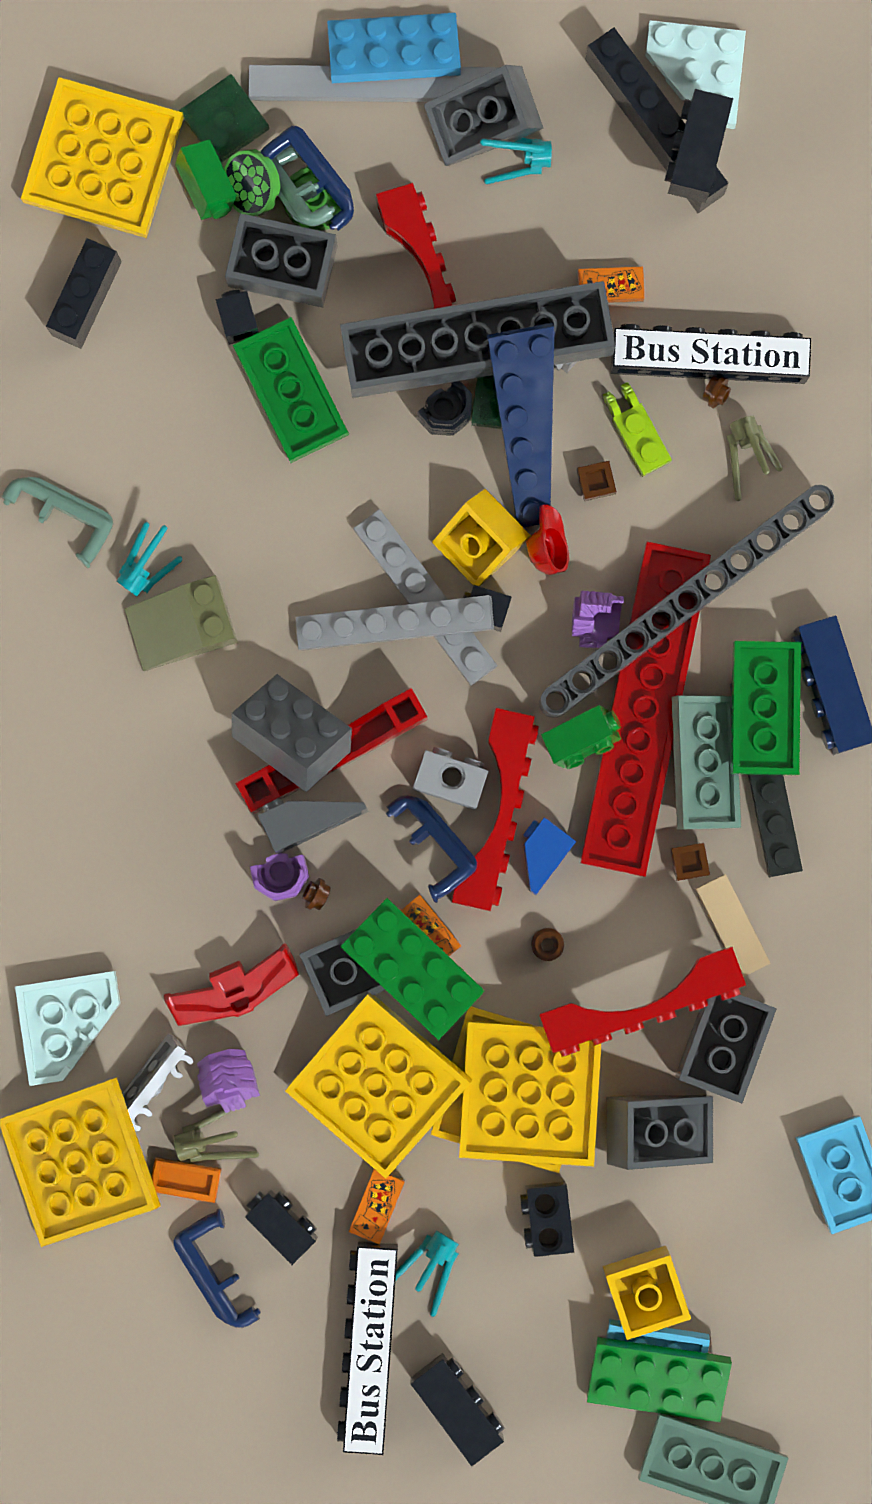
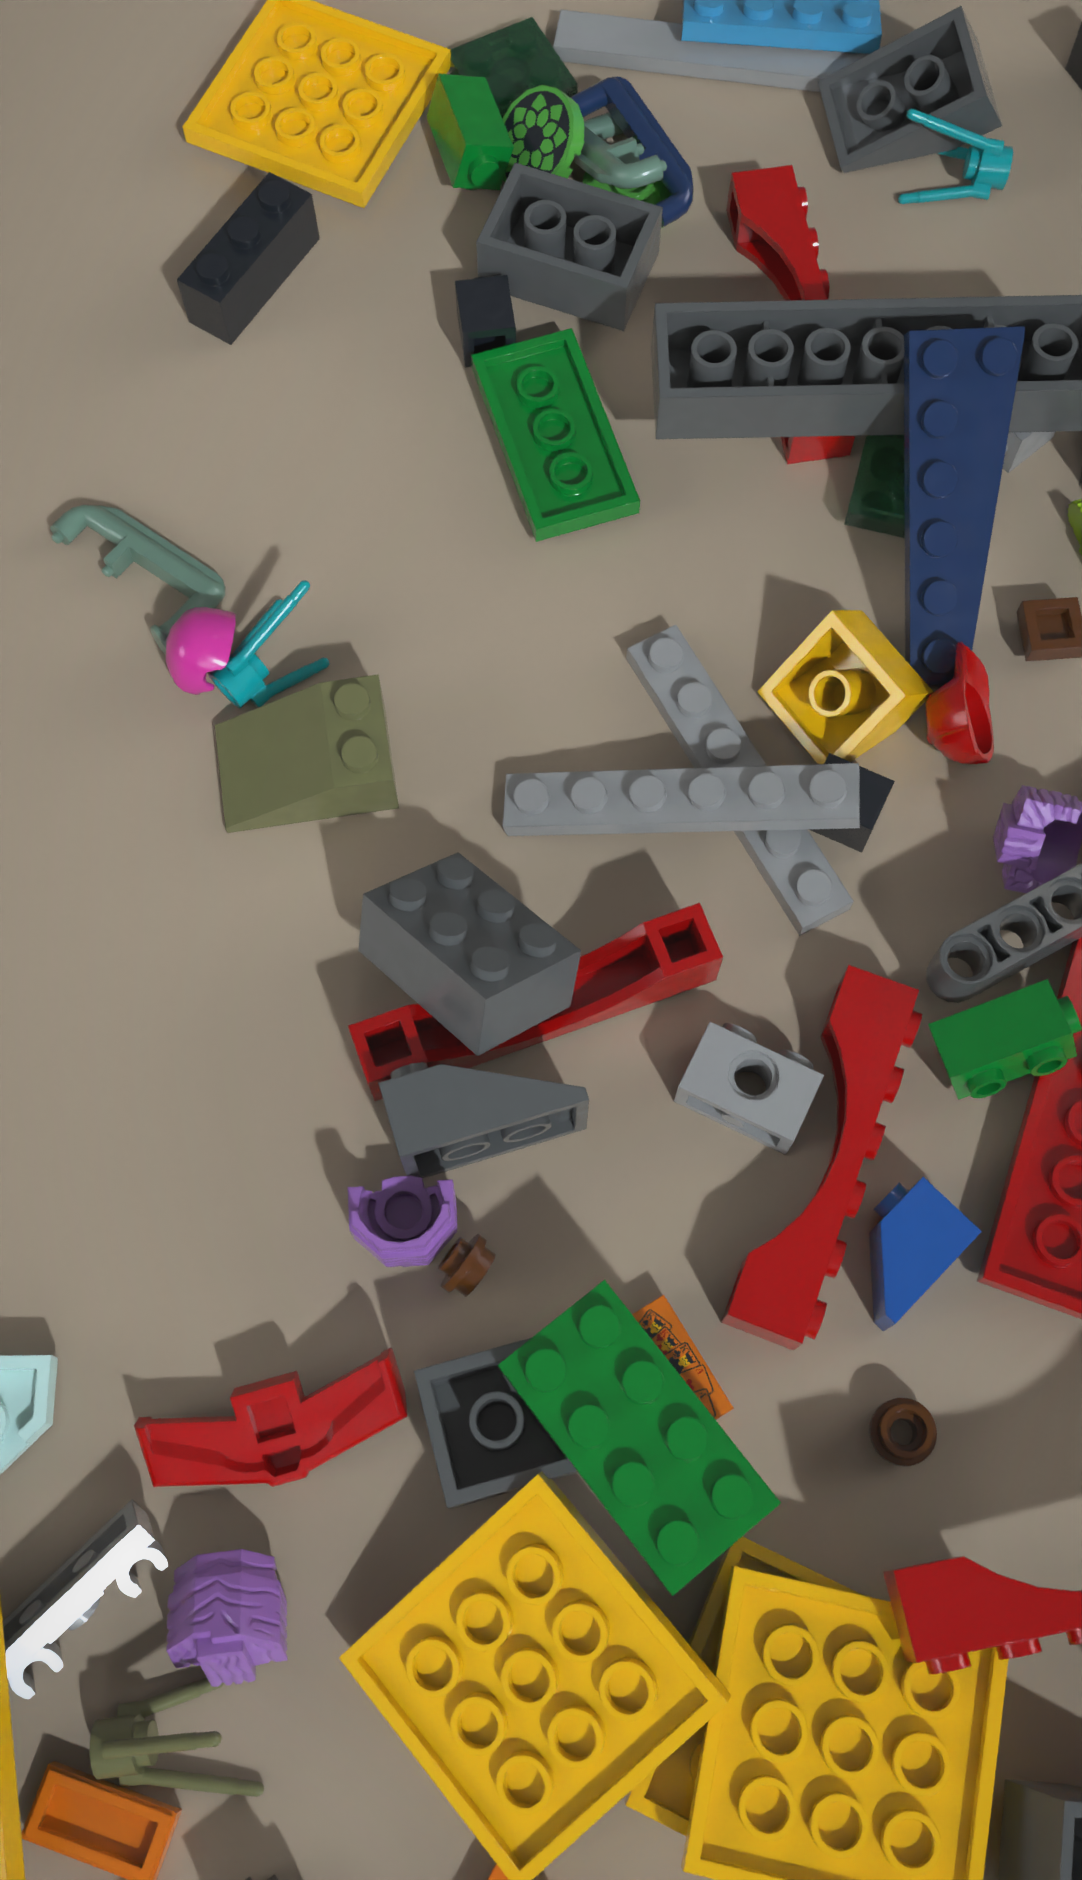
camera: 10 degrees right, 15 degrees down
(109, 567) = (199, 644): none -> dark pink hair
(435, 827) = (726, 1189): dark blue piece -> none
(446, 410) = (811, 493): black hair -> none

